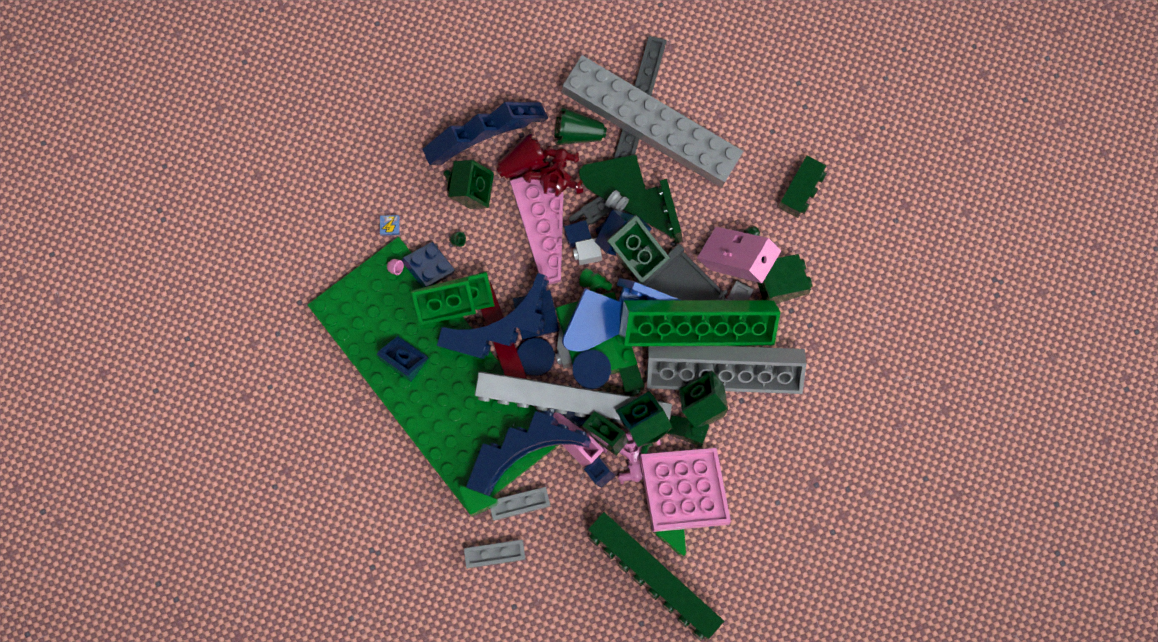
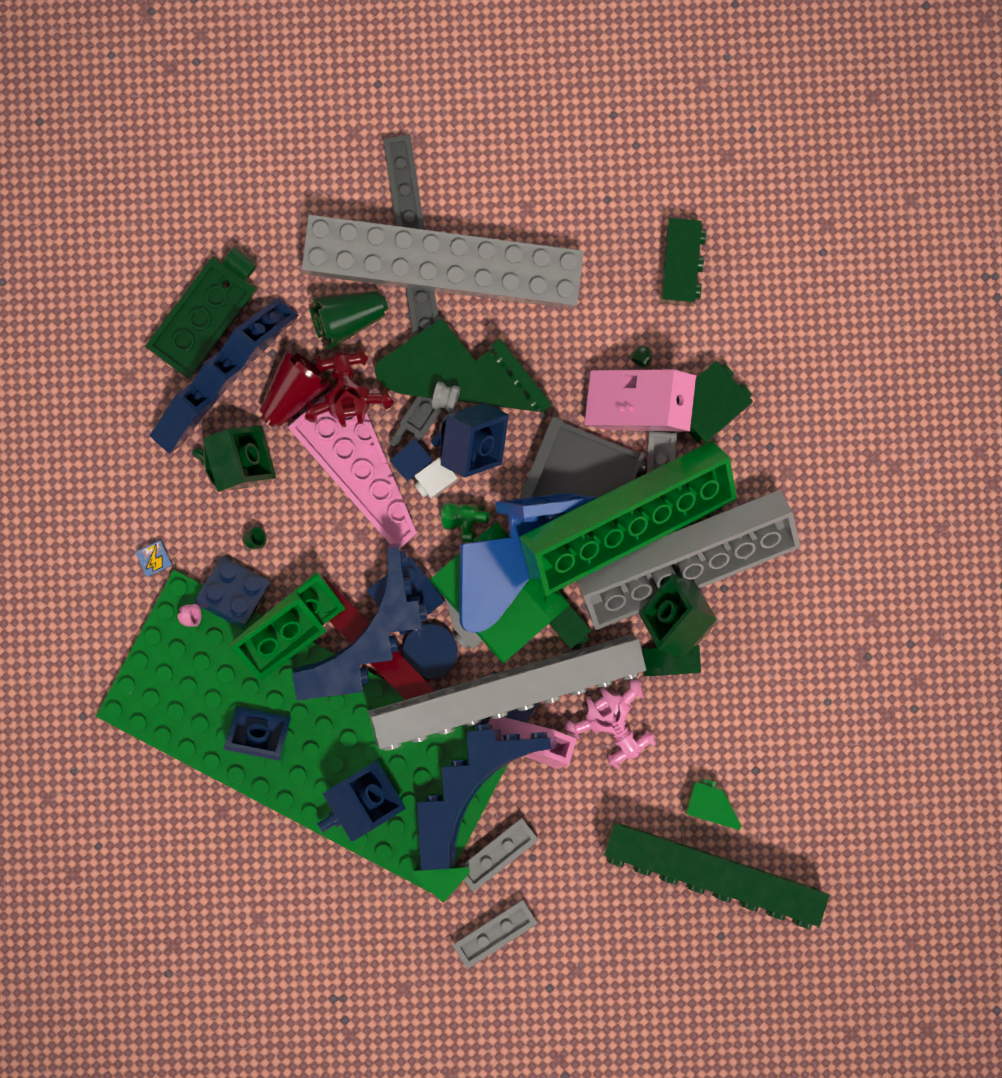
camera: 25 degrees left, 10 degrees up
(448, 427) = (362, 802): none -> dark blue piece
(491, 90) = (204, 313): none -> dark green hinge
(591, 369) = (515, 642): dark blue tile -> none
(600, 472) = (583, 768): dark blue panel -> none
(606, 433) = (570, 717): dark green slope -> none
(637, 249) = (504, 454): dark green slope -> none
(644, 421) = (613, 681): dark green piece -> none
(684, 489) = (703, 743): bright pink plate -> none

